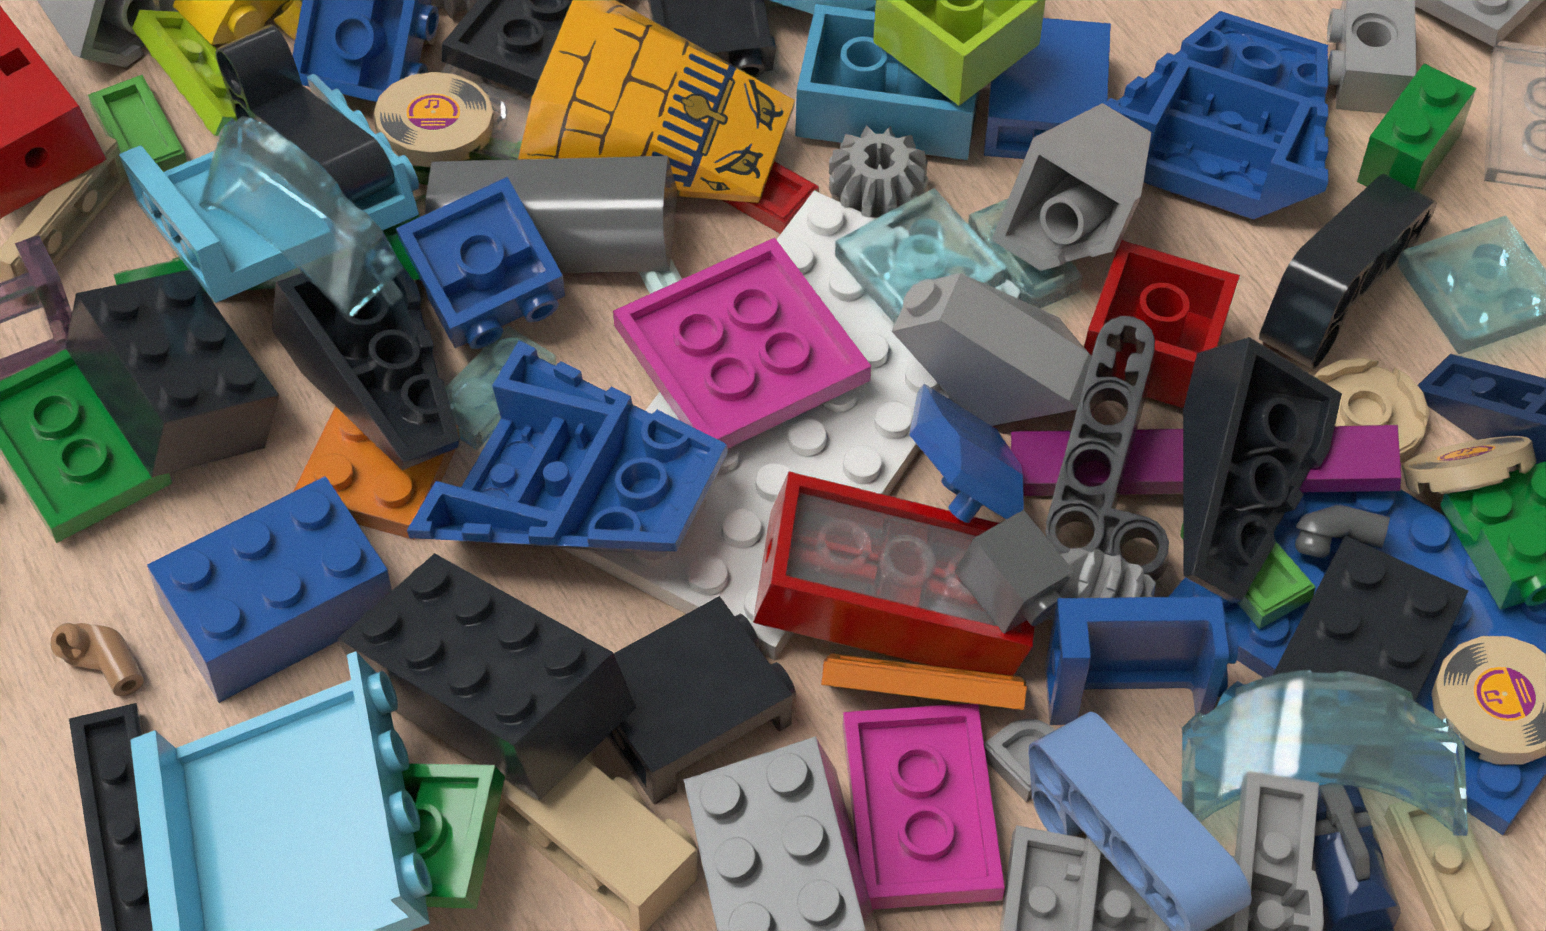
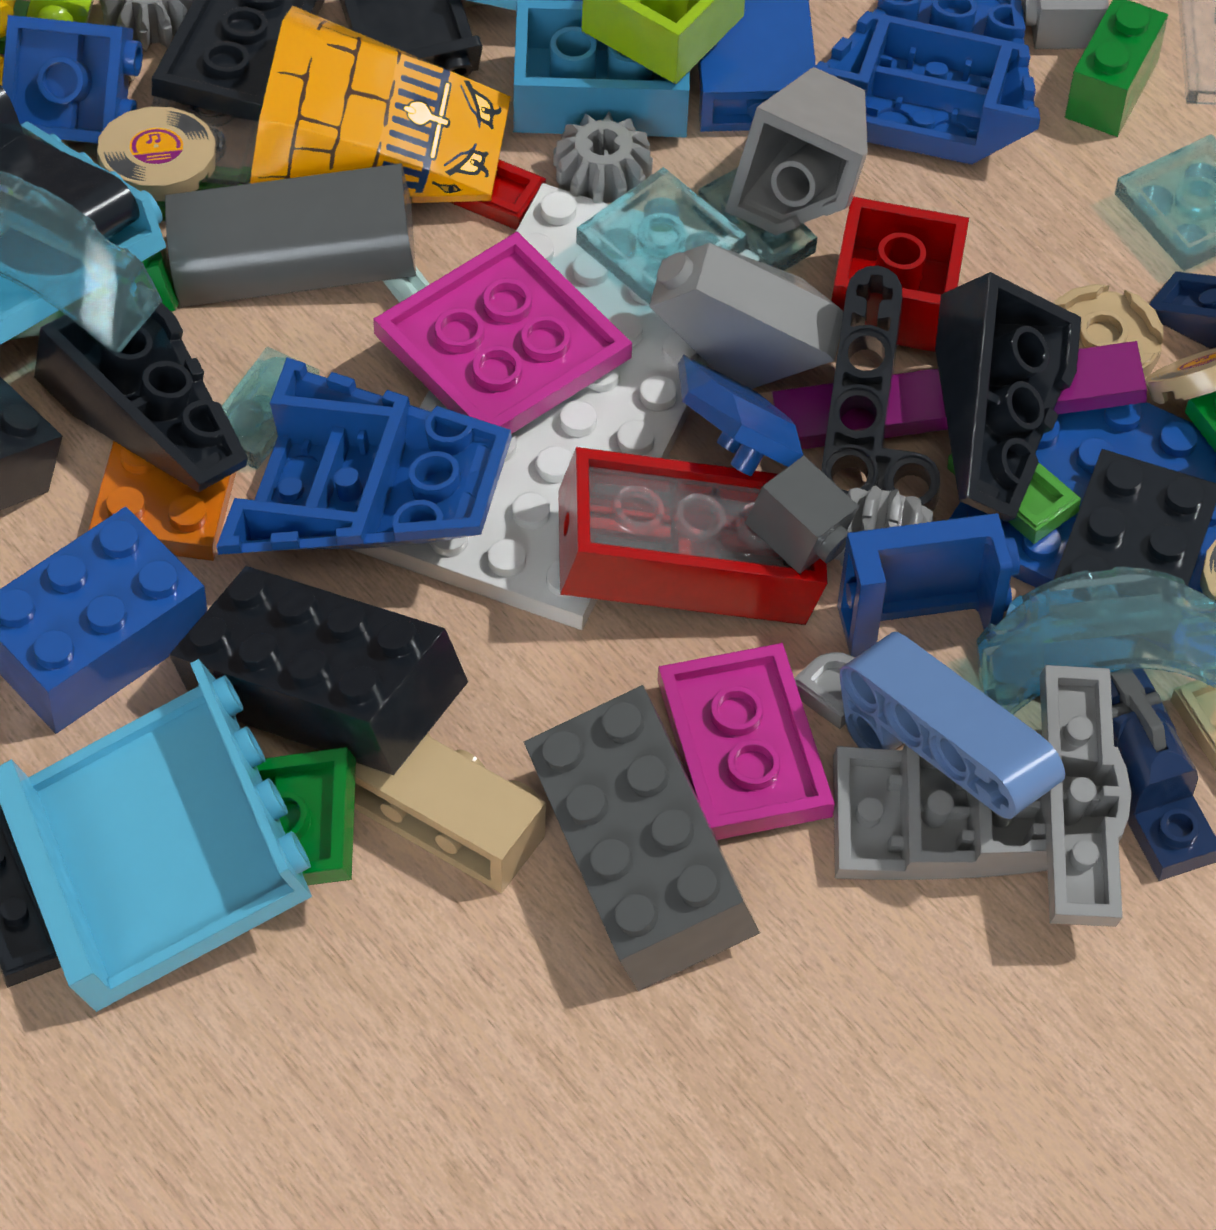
camera: 10 degrees left, 0 degrees up
(483, 264) = (237, 289): blue plate -> none
(694, 693) = (519, 665): black panel -> none
(924, 681) = (729, 629): orange tile -> none
(1337, 521) = (1092, 437): dark grey arm -> none
(1342, 266) = (1064, 198): black beam -> none

